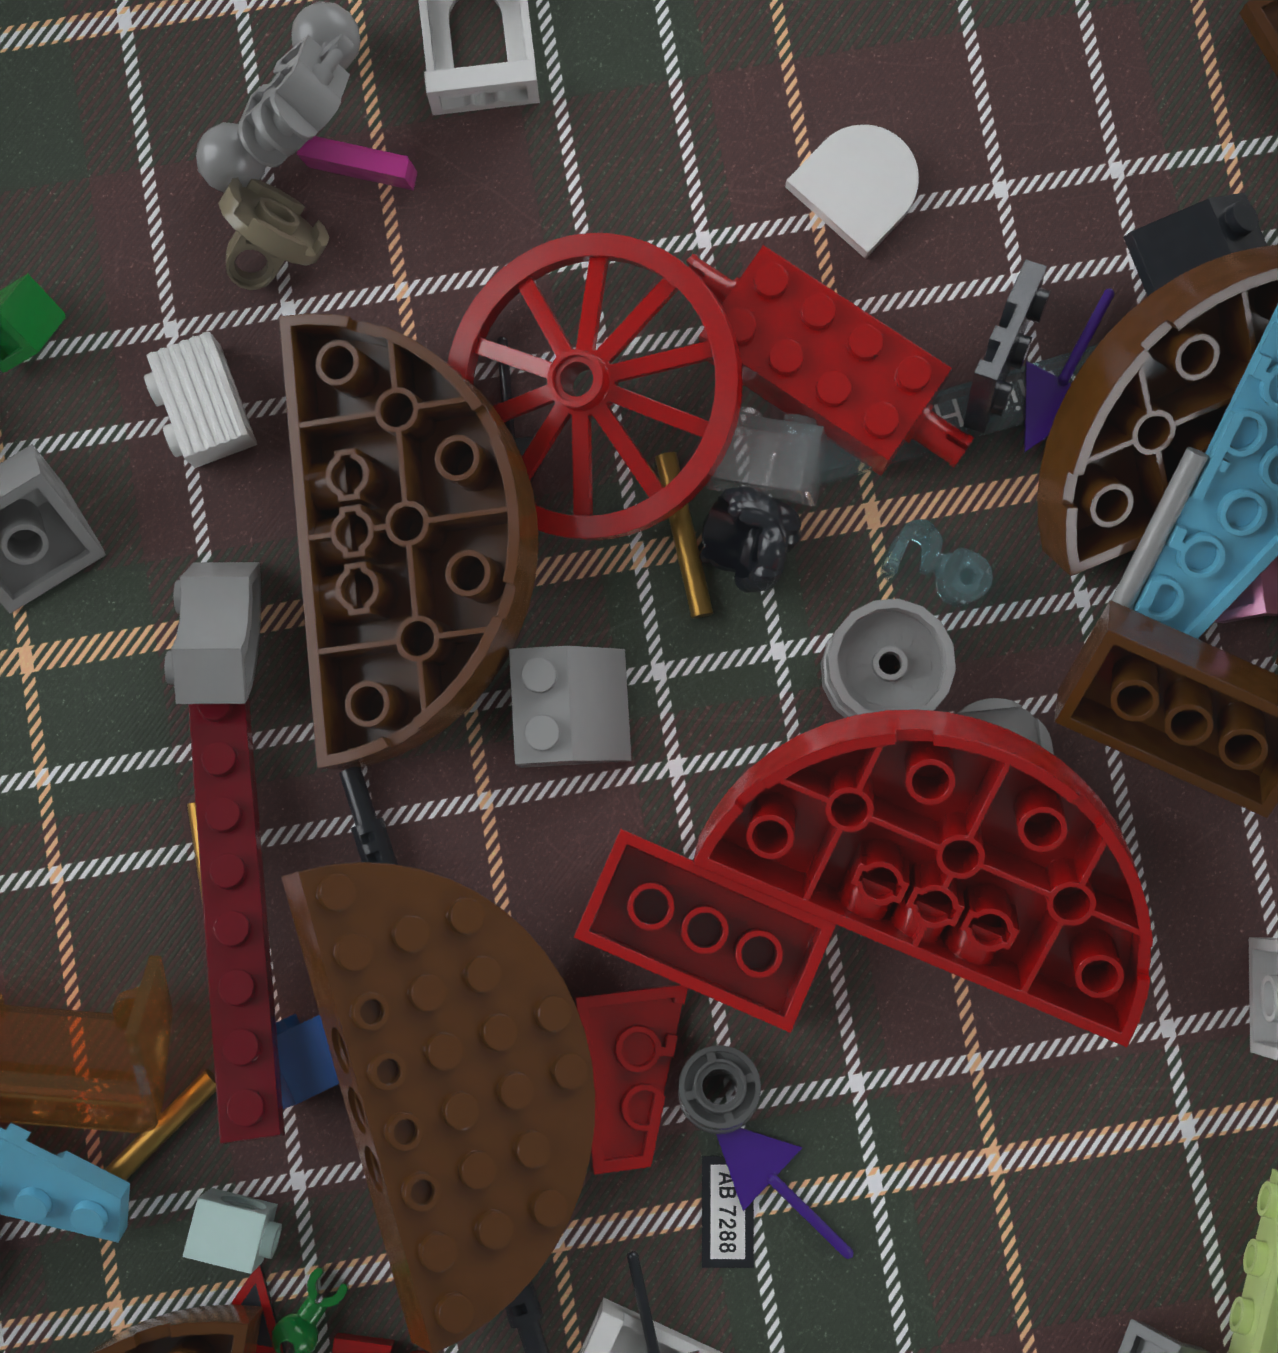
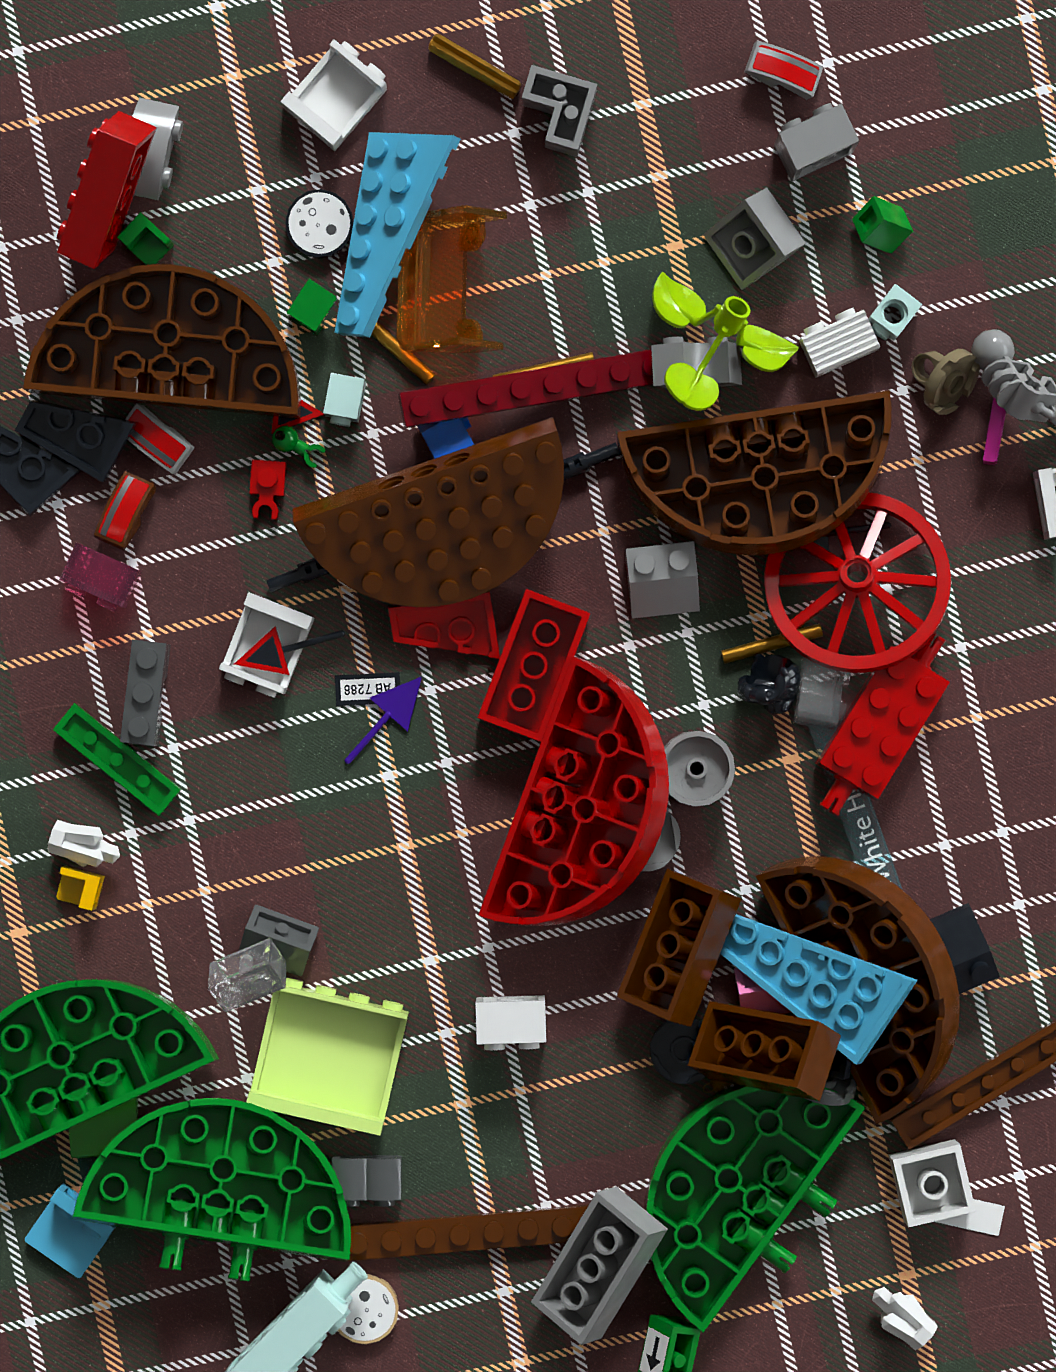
camera: 85 degrees right, 5 degrees up
(69, 1282) = (312, 306): none -> green panel
(138, 568) = (682, 306): none -> lime plant
(144, 294) = (904, 303): none -> light aqua brick
(722, 1062) = (455, 679): dark grey wheel -> none
(858, 184) = (999, 742): white tile -> none
(959, 575) = (755, 812): clear light blue leg -> none
(1006, 347) = (867, 823): black wing -> none
(1046, 391) = (874, 860): dark purple piece -> none
(1160, 526) = (785, 925): light grey bar -> none

